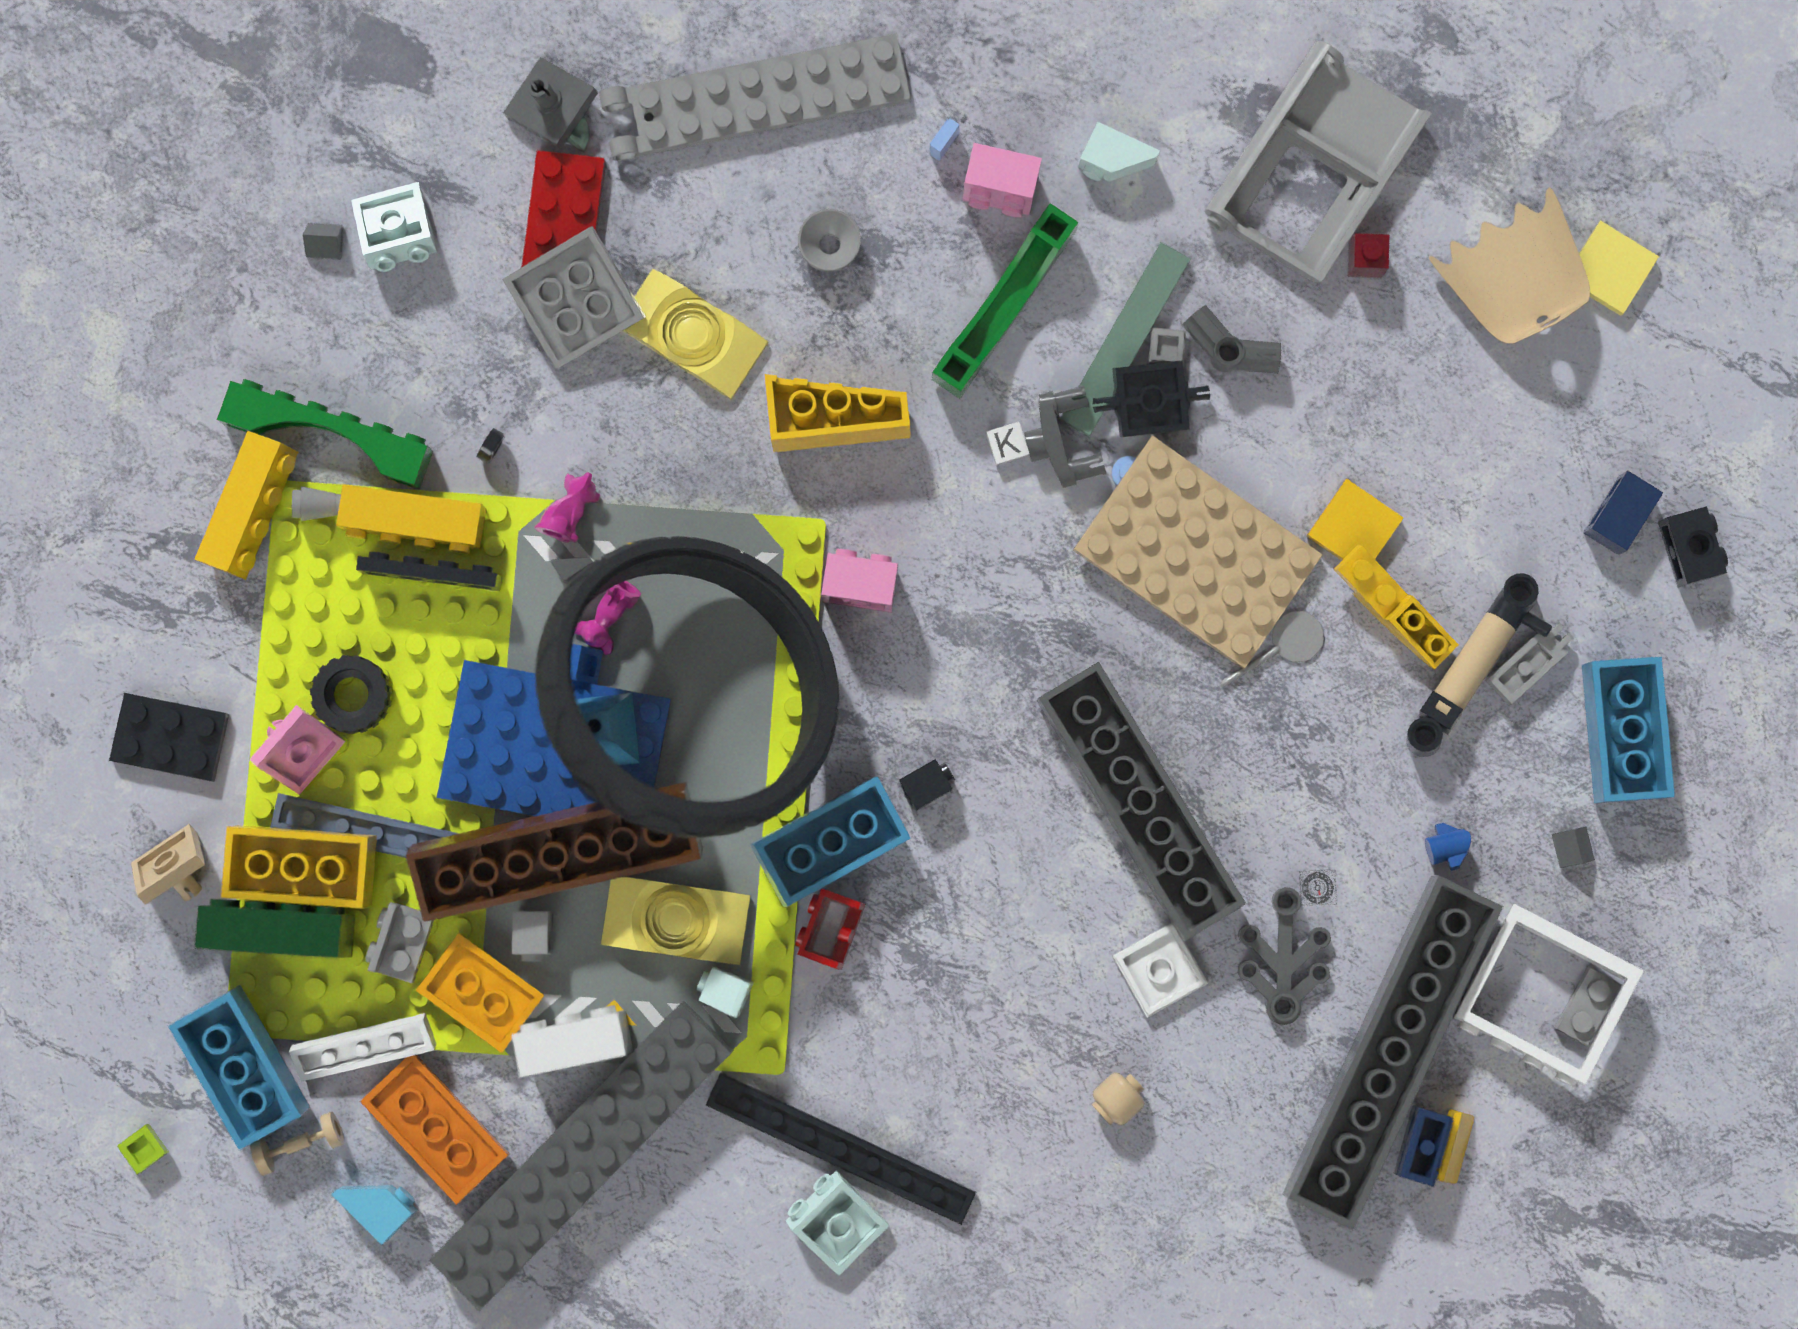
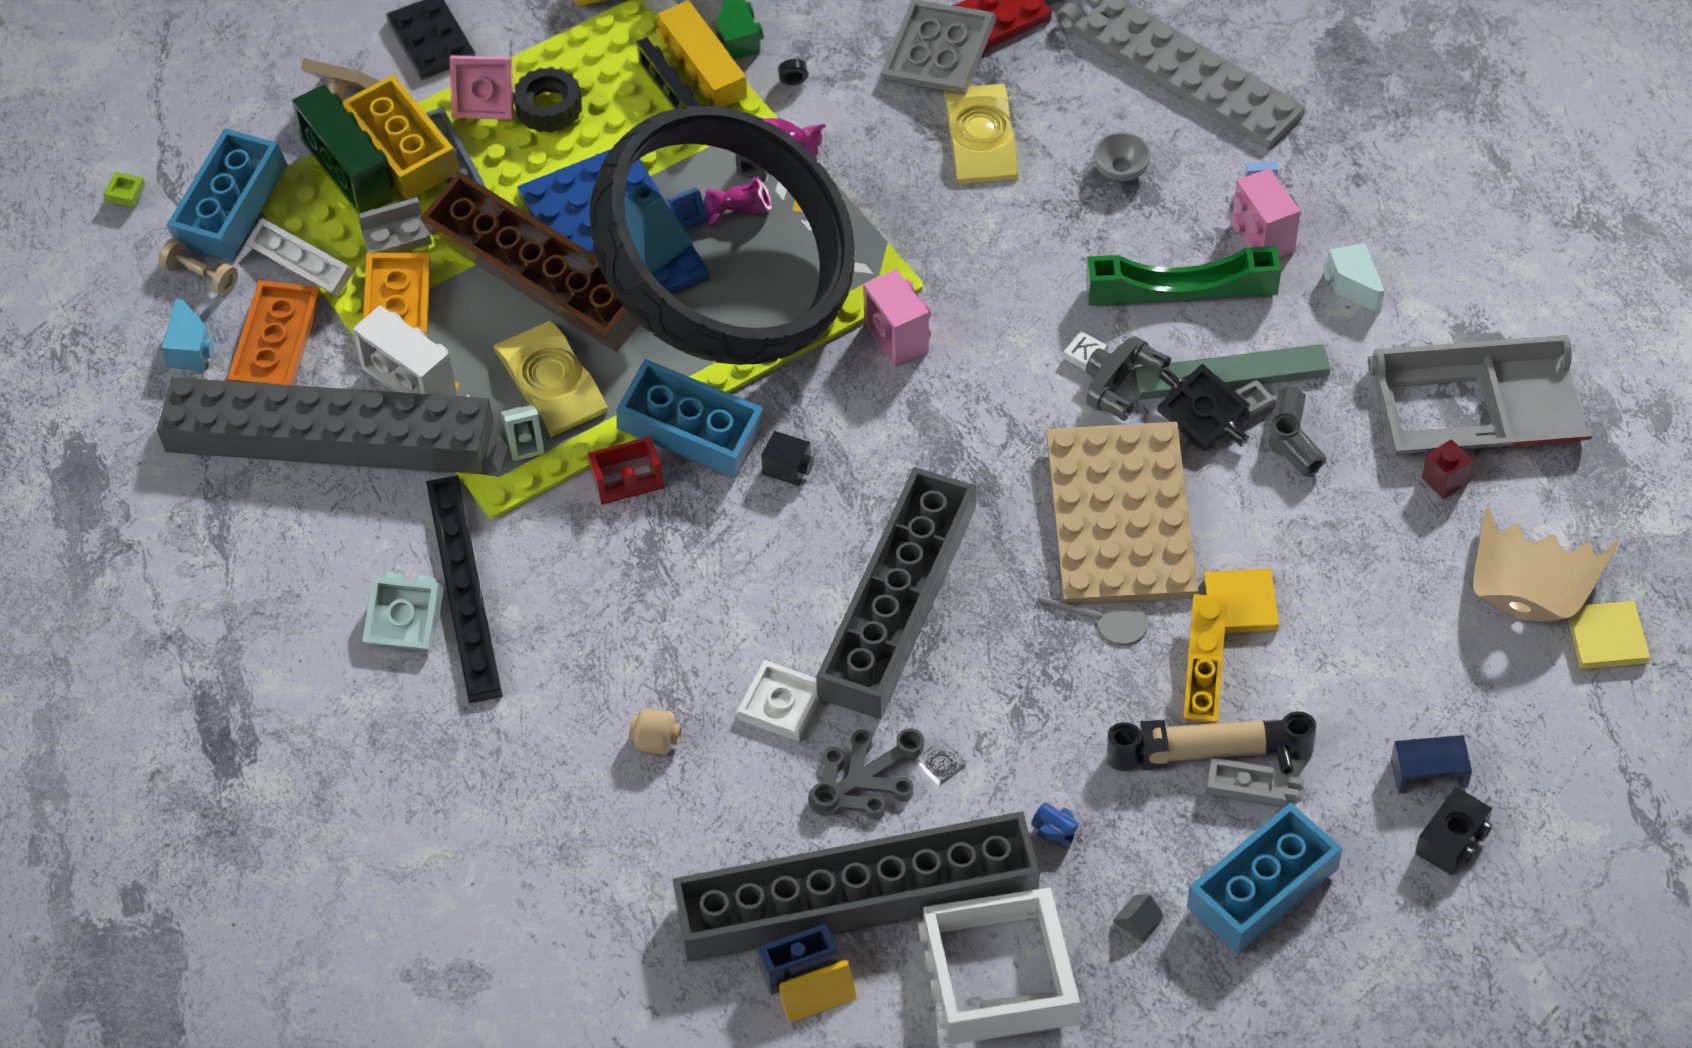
camera: 55 degrees right, 30 degrees down
(532, 934) = (466, 298): light grey brick -> none
(832, 415) = (1000, 232): yellow wedge -> none

